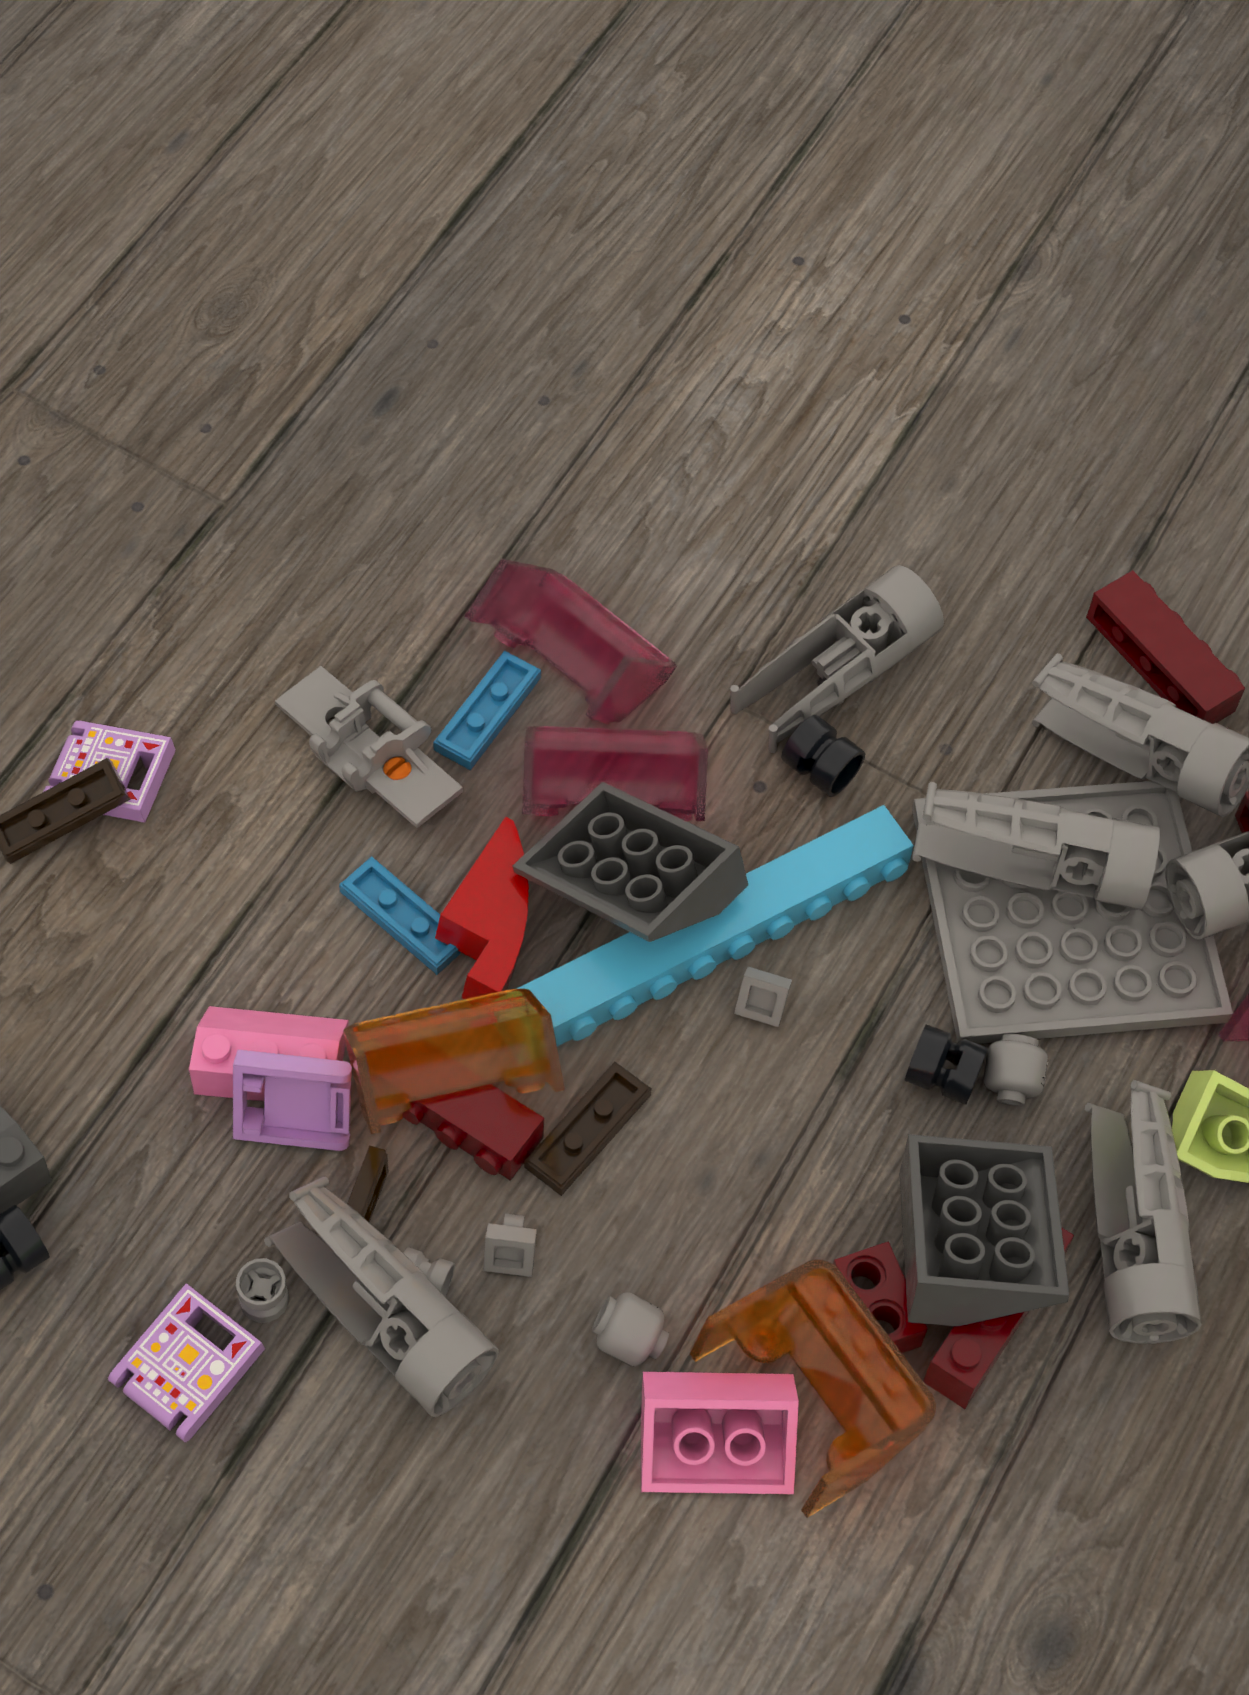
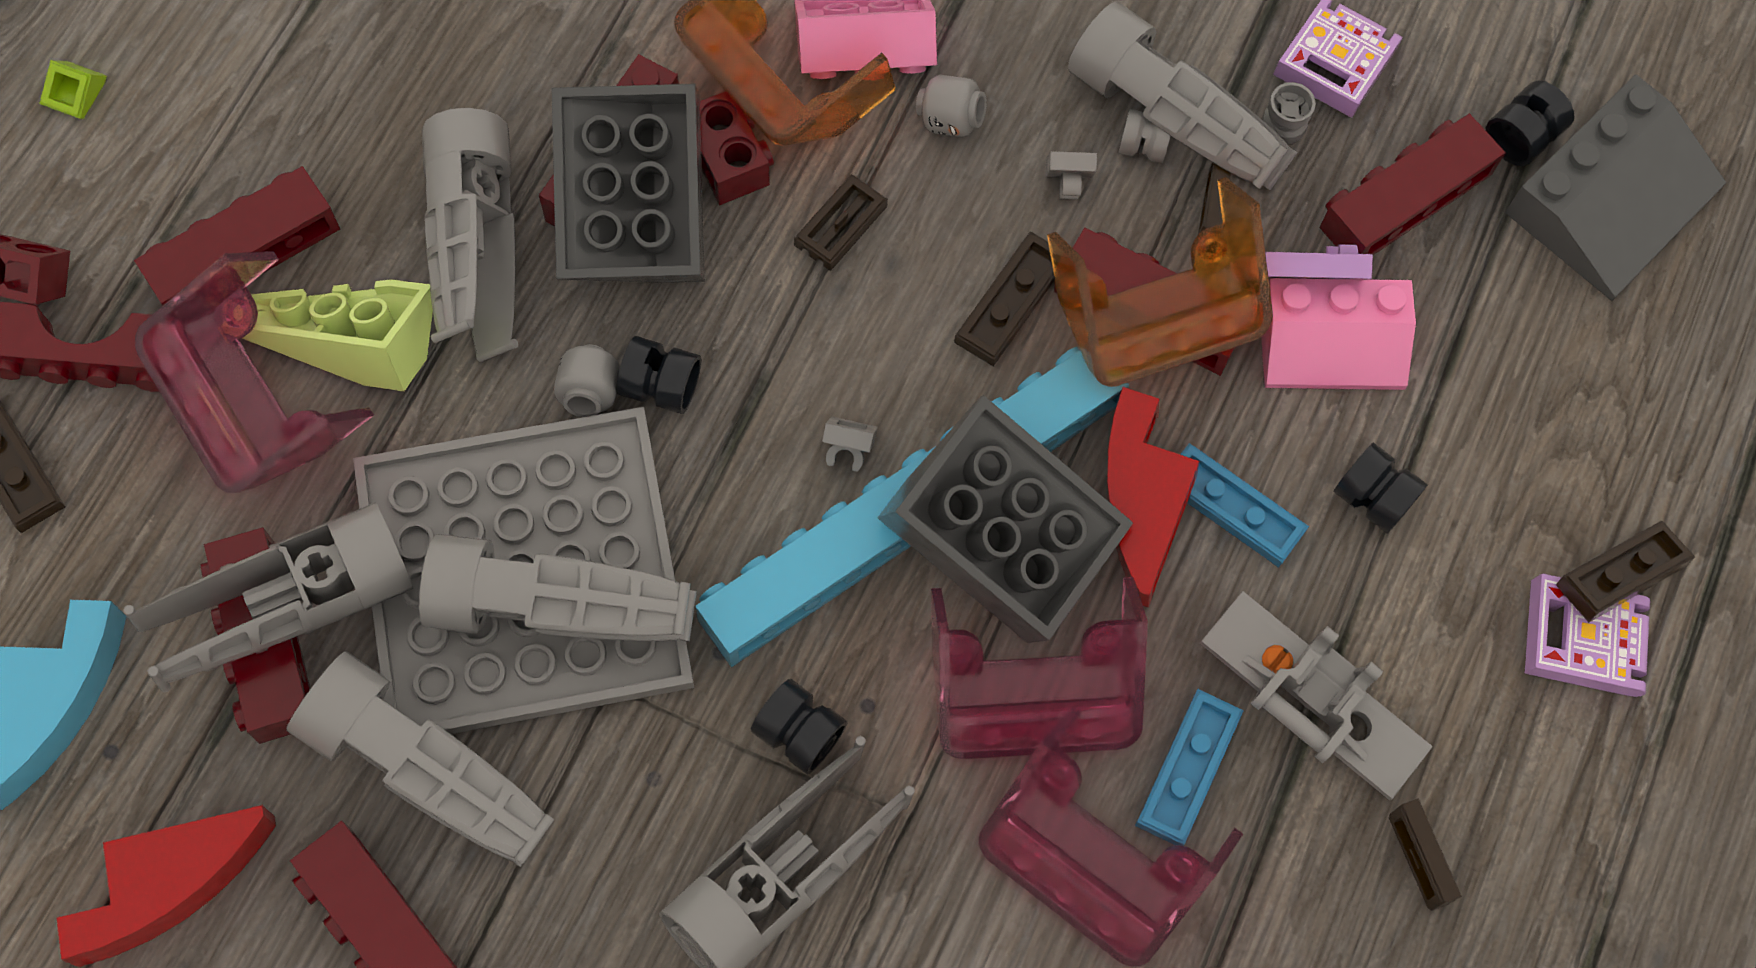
camera: 175 degrees right, 10 degrees up
(150, 1194) = (1412, 187): none -> dark red brick
(261, 893) = (1380, 487): none -> black wheel
(307, 620) = (1424, 855): none -> dark brown tile
(730, 1251) = (818, 249): none -> dark brown tile

